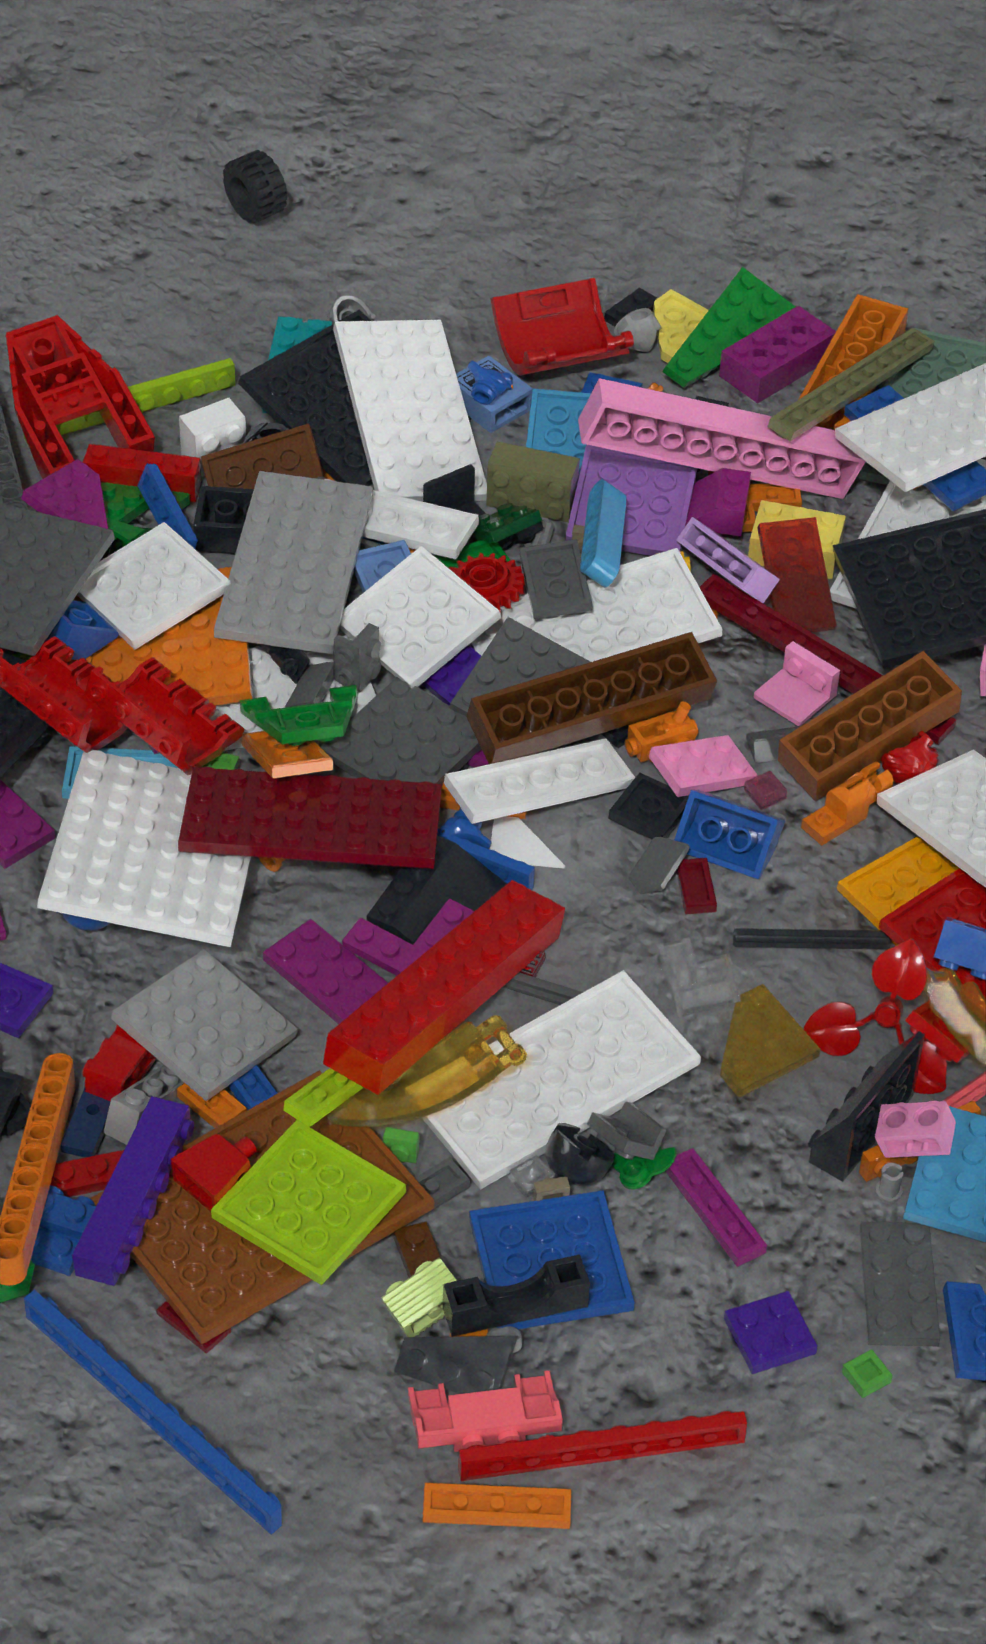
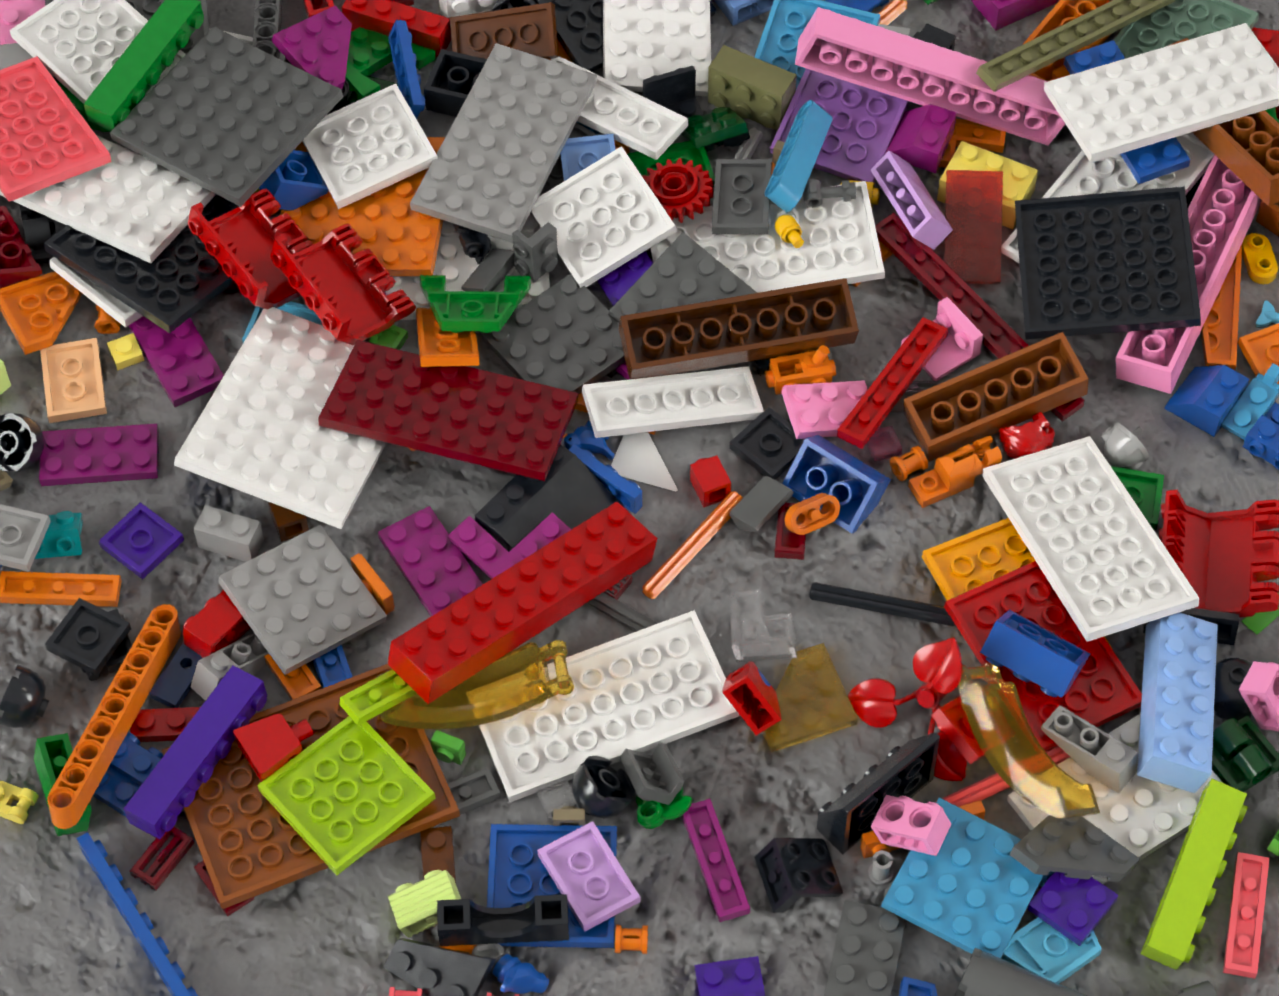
camera: 15 degrees right, 10 degrees up
(102, 977) = (228, 534): none -> light grey brick
(108, 1328) = (155, 882): none -> dark red tile
(161, 952) = (287, 522): none -> reddish brown brick
(274, 997) = (373, 583): none -> orange plate
(543, 1353) = (519, 976): none -> blue animal
(587, 1228) = (589, 875): none -> lavender plate
(597, 916) = (691, 546): none -> orange axle
(599, 850) = (710, 480): none -> red brick
(613, 603) = (789, 230): none -> yellow cylinder
(631, 566) = (815, 192): none -> dark grey bar
(651, 1297) = (631, 939): none -> orange bush
(708, 1040) = (749, 692): none -> red torso
(716, 862) = (810, 515): none -> orange plate
(760, 729) = (892, 383): none -> red plate
(797, 804) = (908, 463): none -> orange bush
(799, 1201) = (796, 870): none -> black bracket

